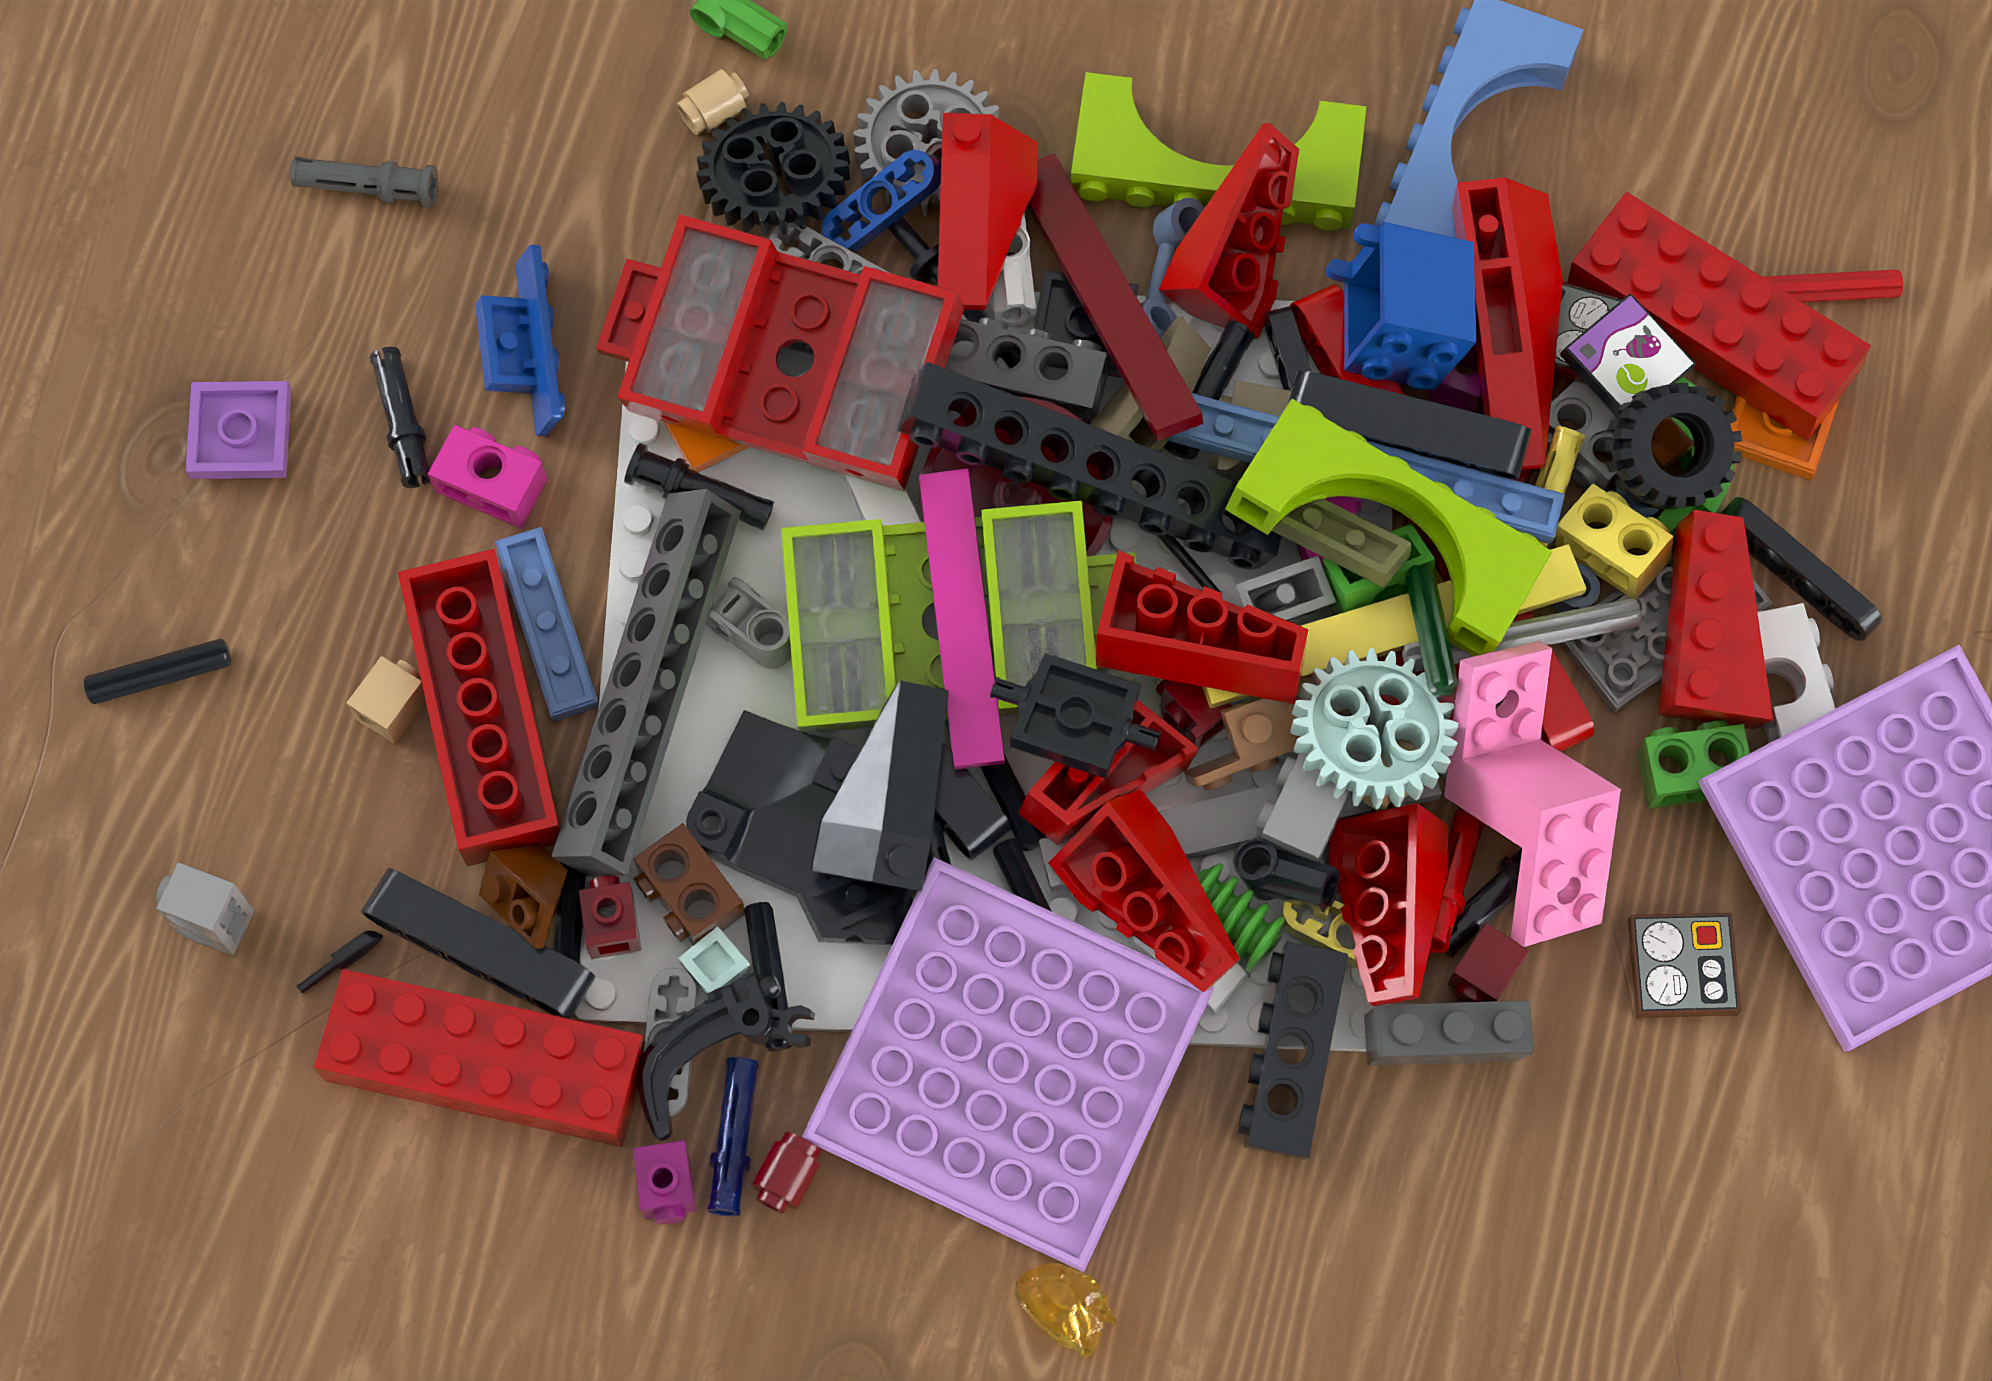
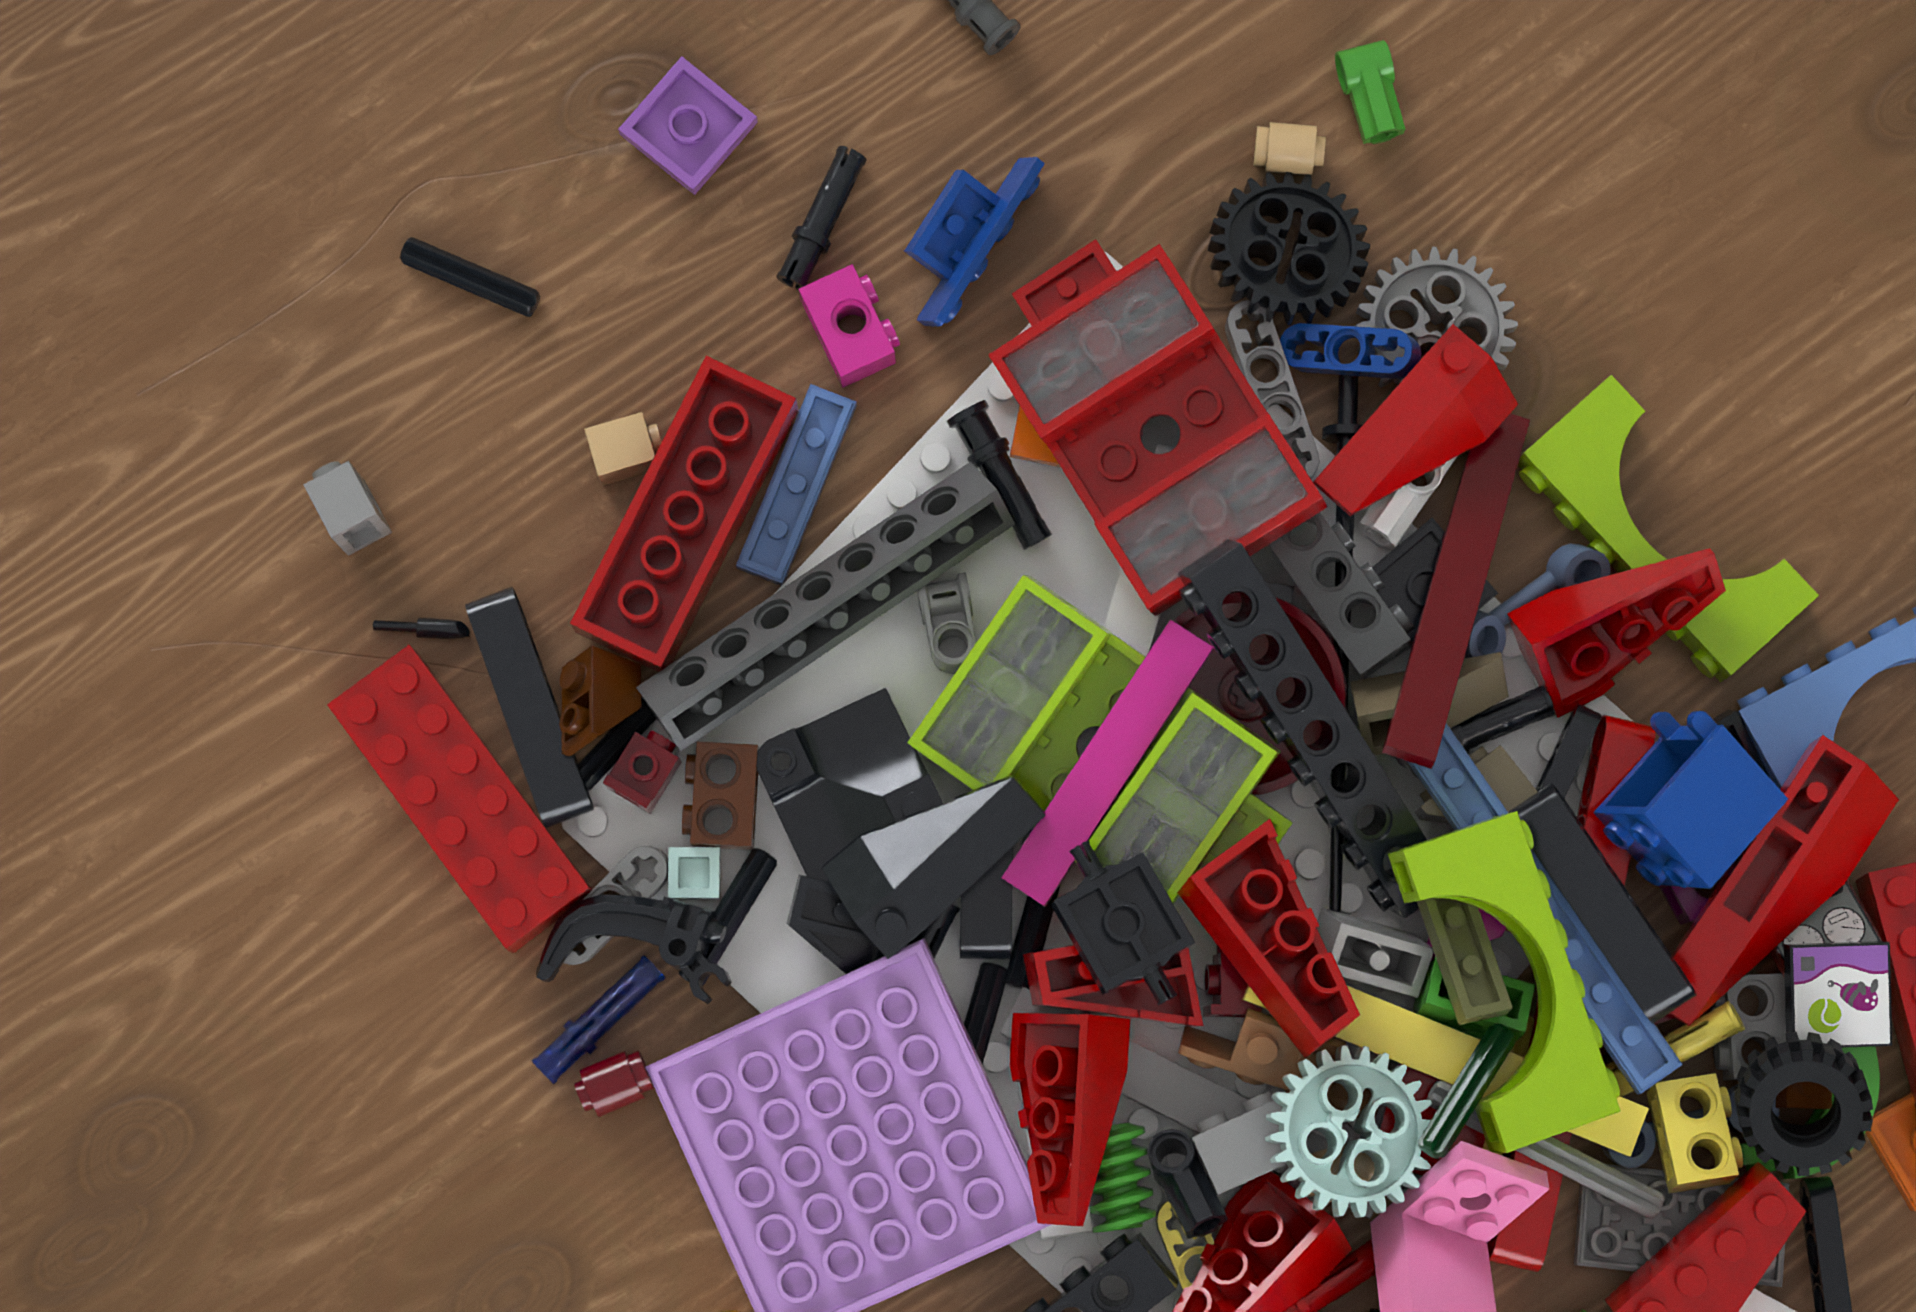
camera: 40 degrees right, 10 degrees up
(665, 1181) = (517, 1012): magenta brick -> none

